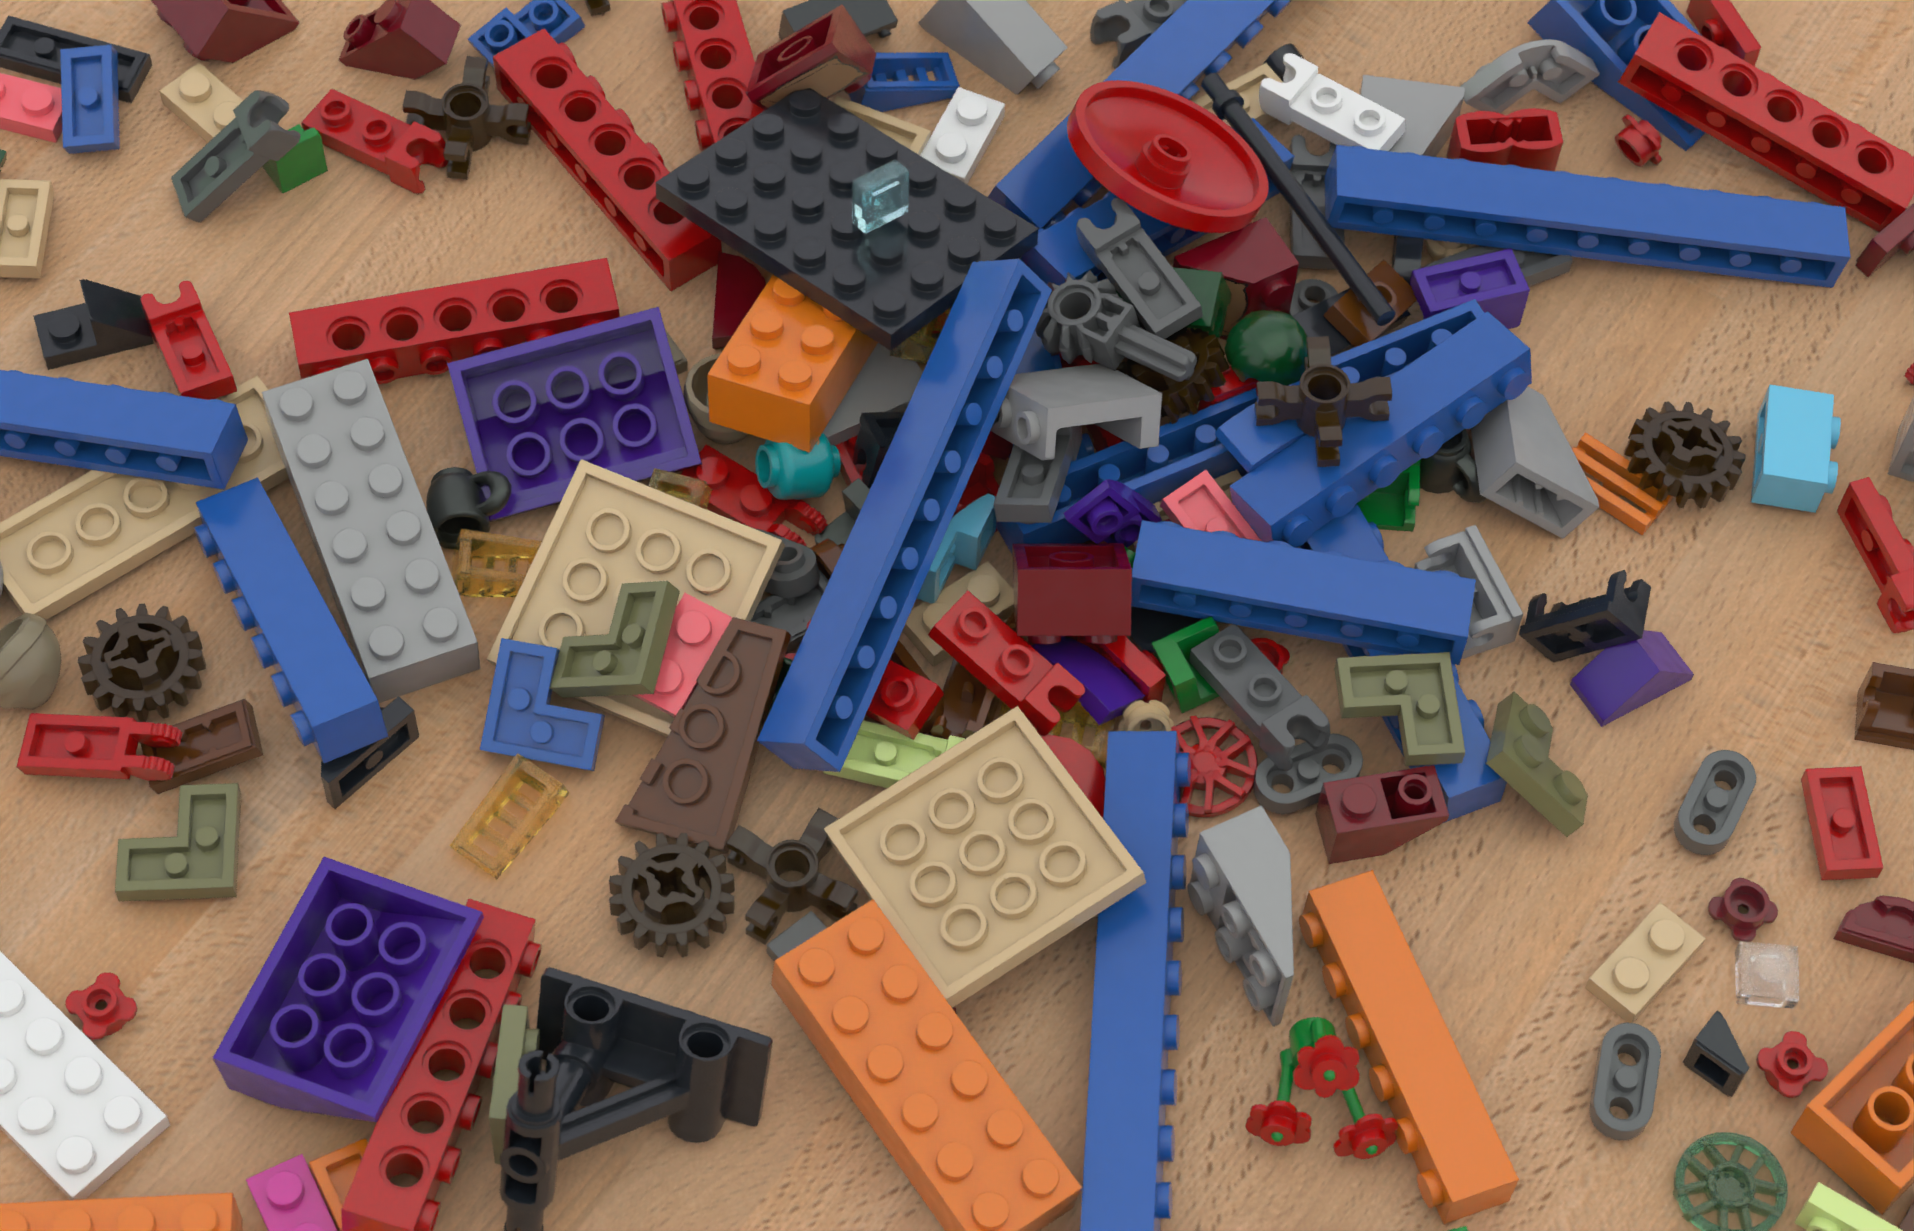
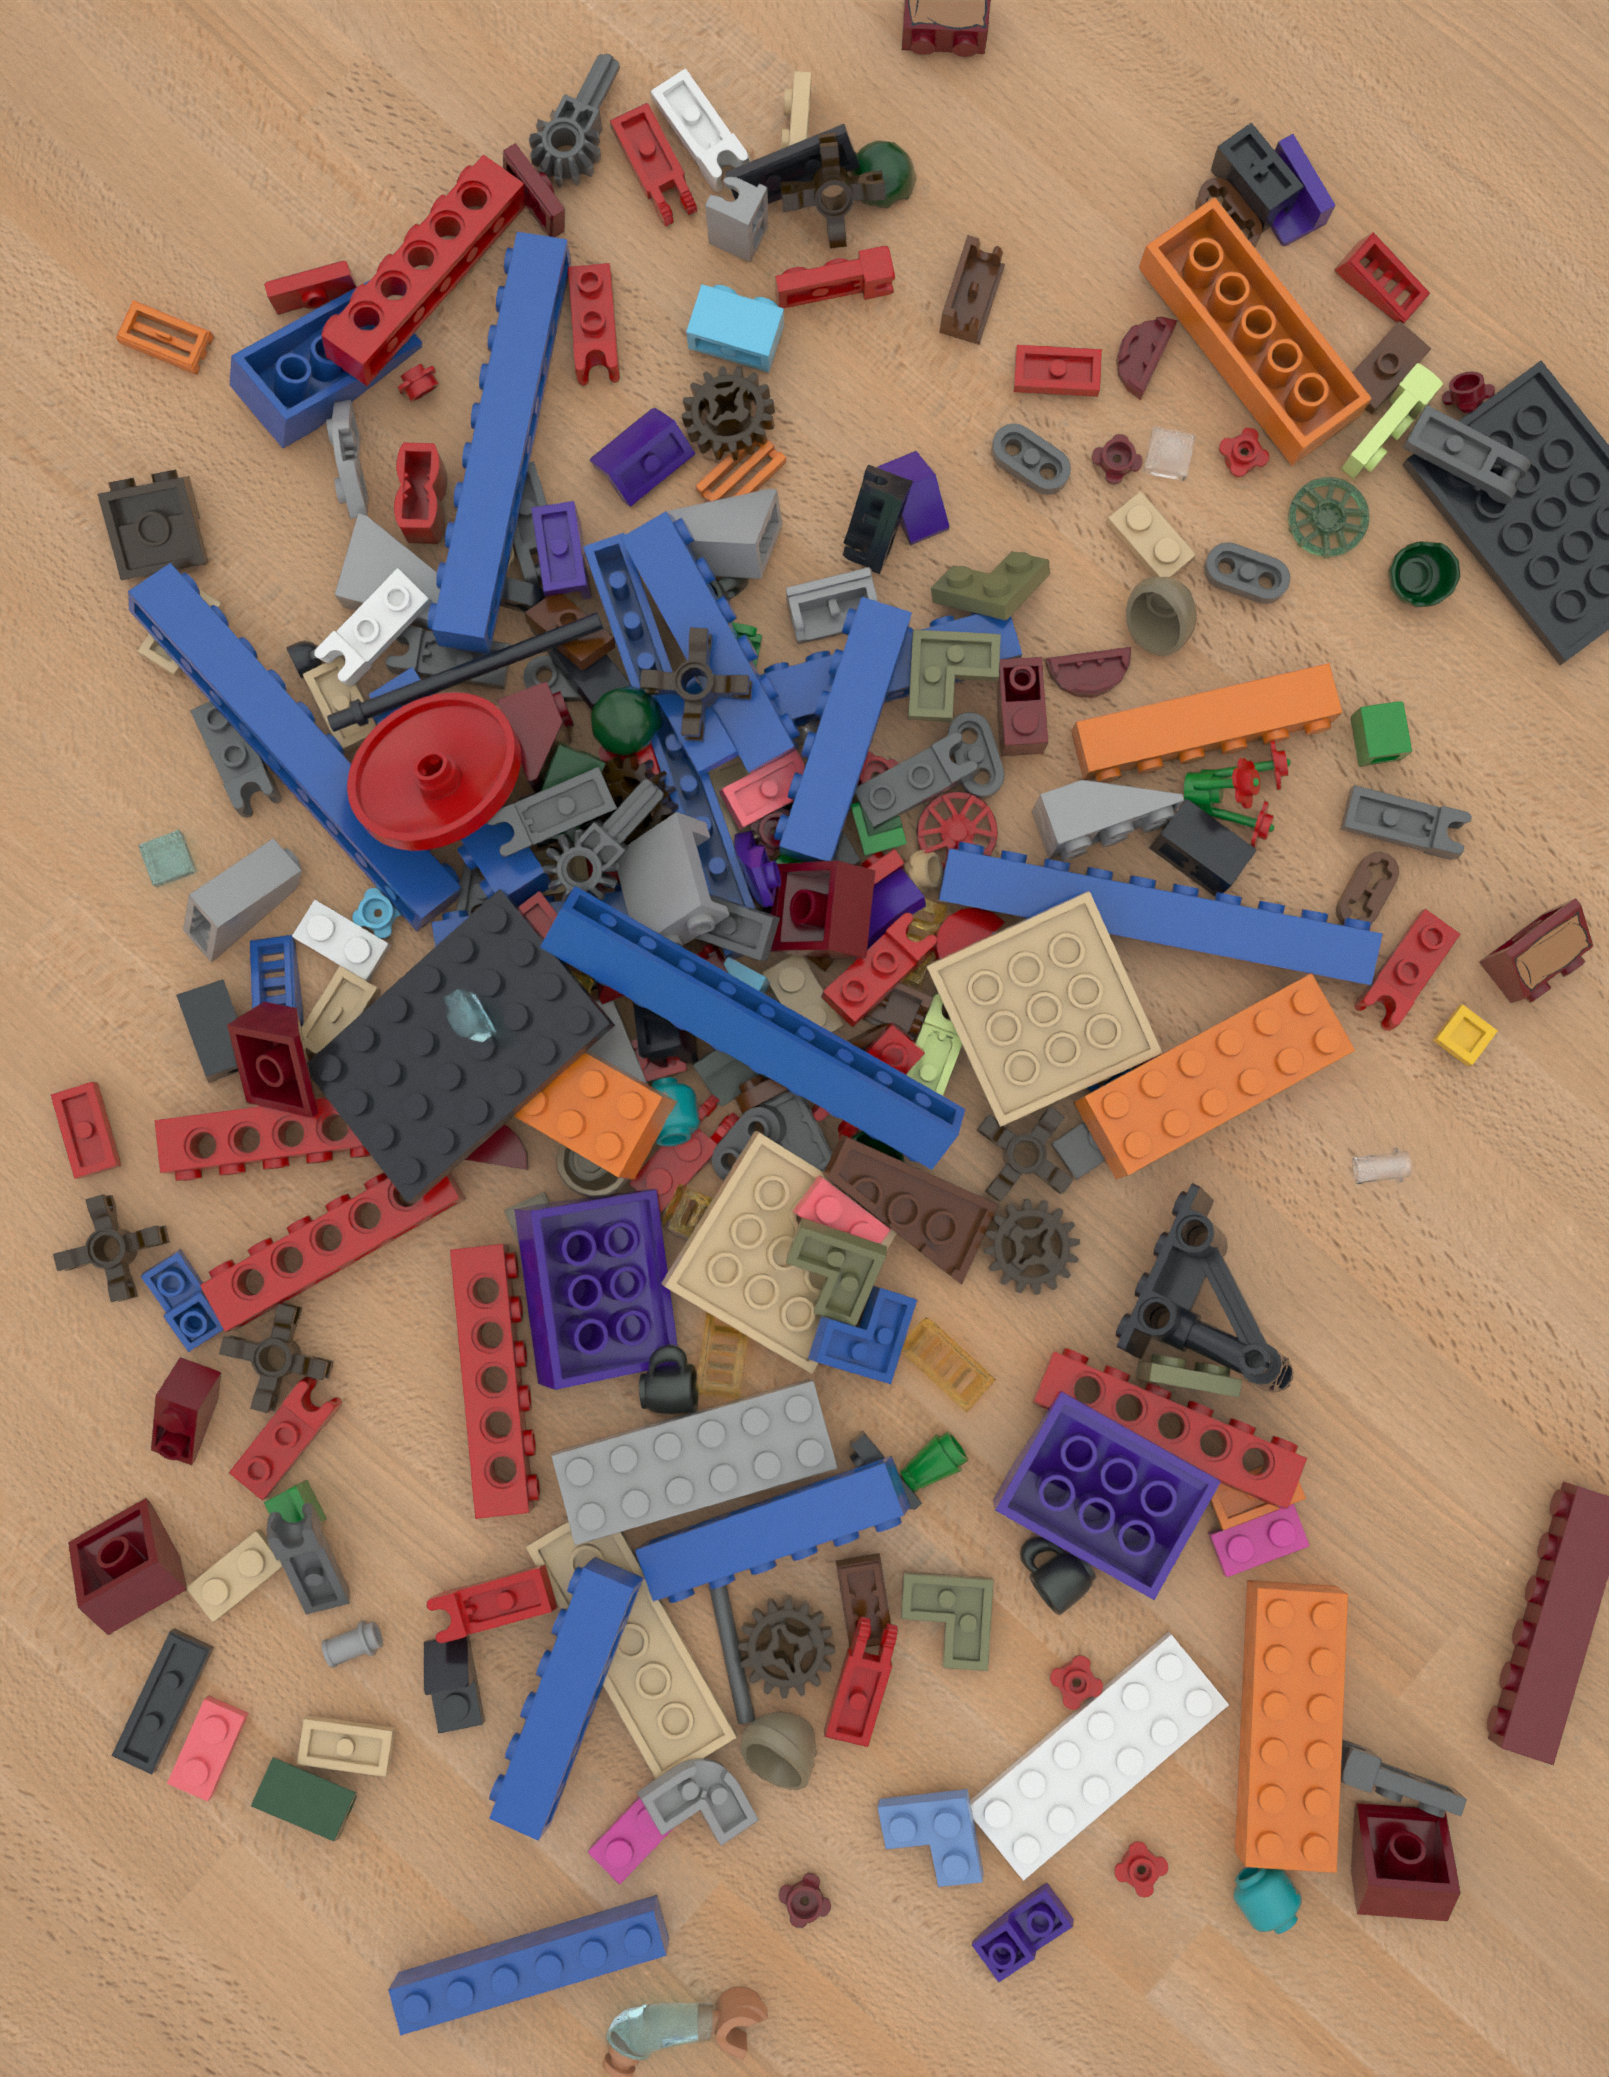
camera: 80 degrees left, 25 degrees up
(90, 99) = (220, 1684): blue plate -> none
(141, 232) = (354, 1643): none -> light grey pin
(176, 601) = (732, 1655): none -> dark grey bar
(232, 963) = (1059, 1580): none -> pearl dark grey piece
(384, 811) = (934, 1462): none -> green cone
(993, 156) = (365, 914): none -> medium azure plate
(1235, 1057) = (1202, 848): none -> black hinge
(1448, 907) = (1089, 672): none -> dark red tile
(1542, 972) = (1161, 615): none -> dark tan hat
(1606, 376) = (643, 455): none -> dark purple panel
(1717, 1056) = (1233, 504): black slope -> none
(1760, 310) = (593, 320): none -> red plate

